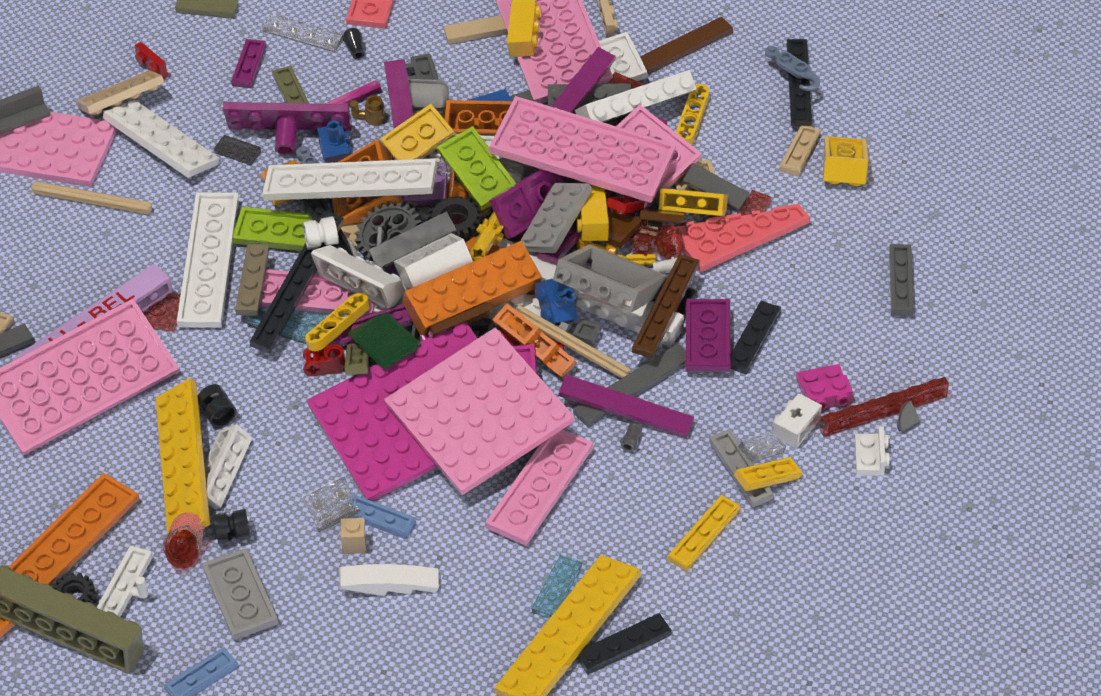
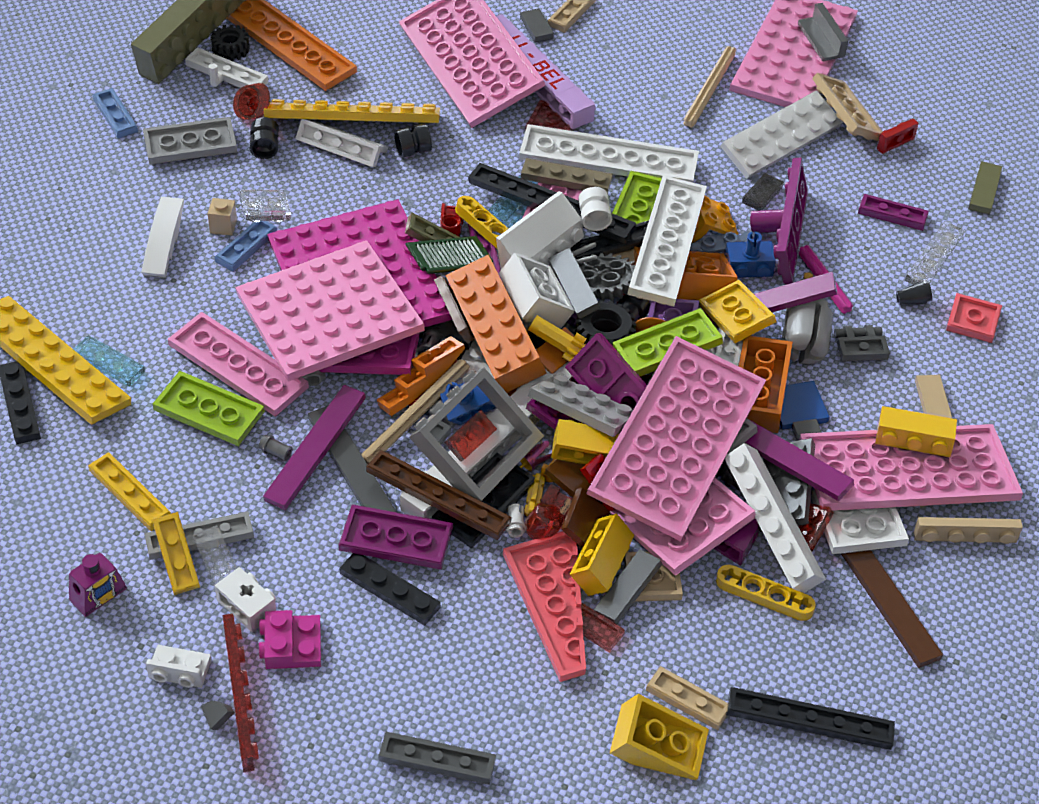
camera: 95 degrees right, 0 degrees up
(289, 85) = (848, 240): olive tile -> none
(598, 494) = (208, 408): none -> lime plate
(794, 66) = (827, 708): sand blue piece -> none
(817, 519) = (94, 583): none -> magenta torso

